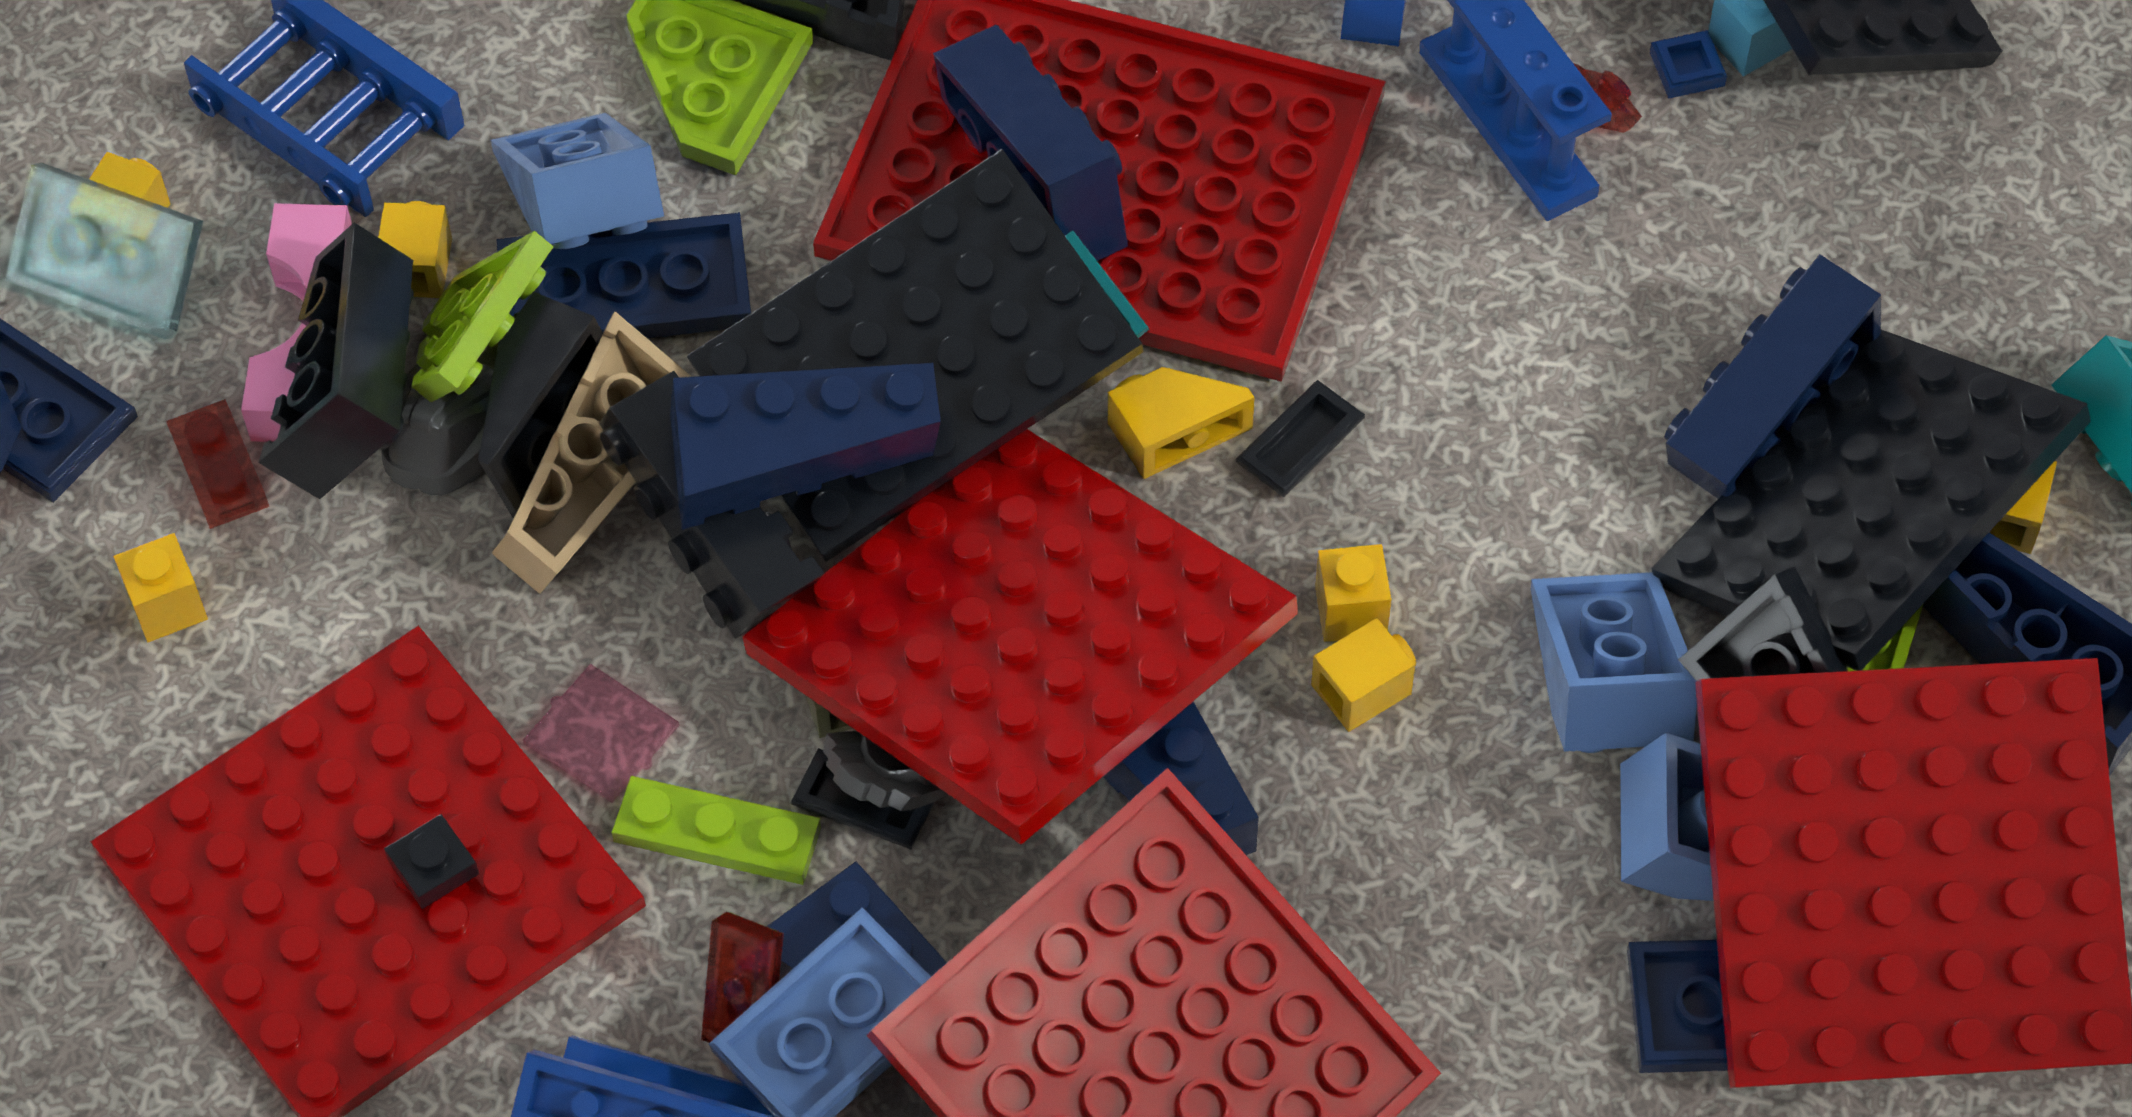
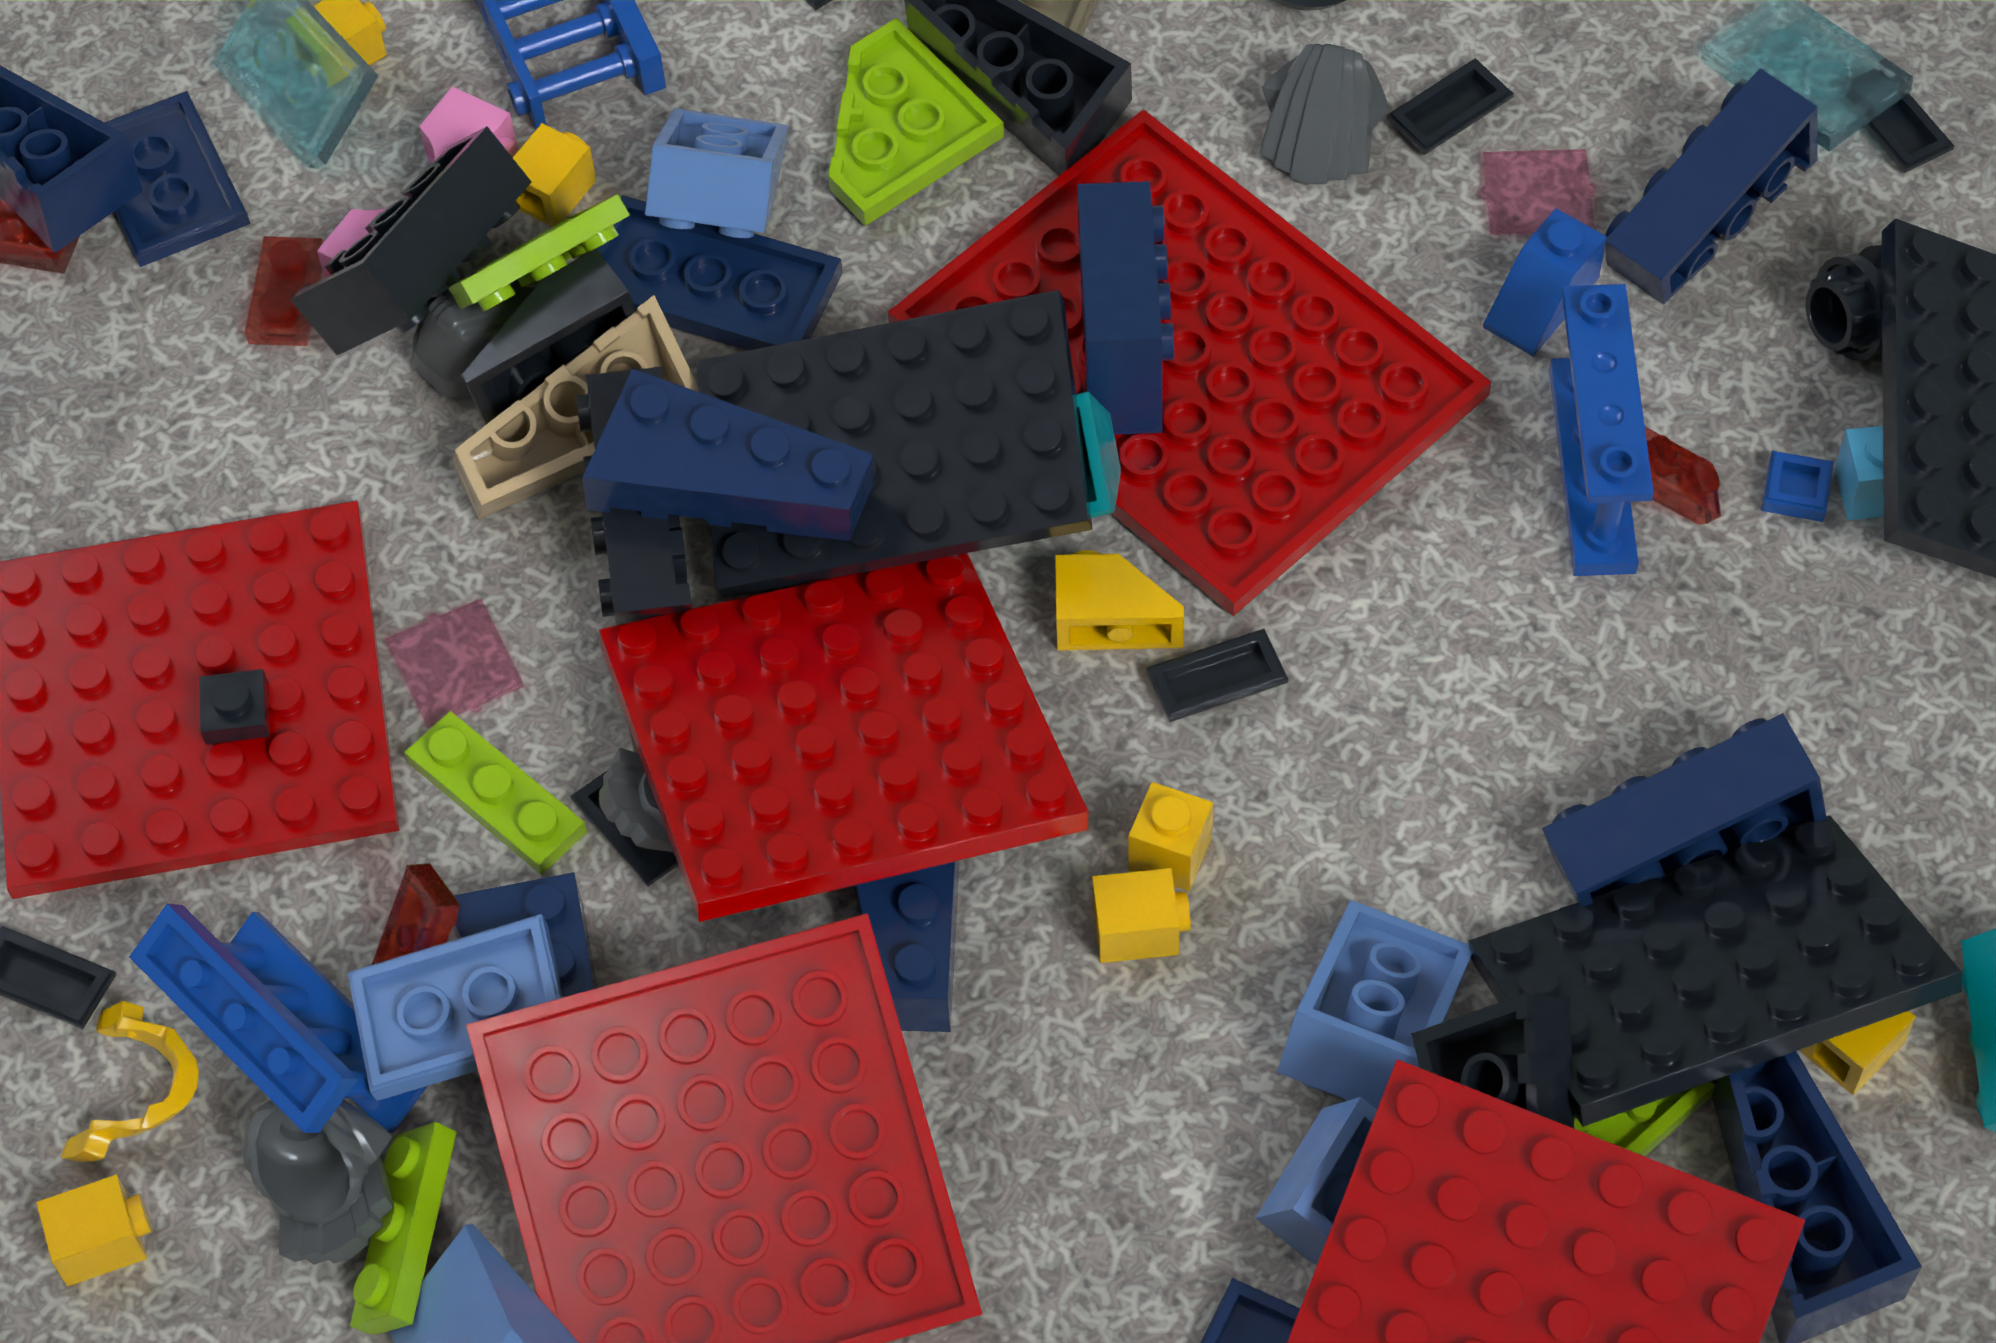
camera: 30 degrees right, 0 degrees up
(160, 587) = (168, 374): yellow brick -> none

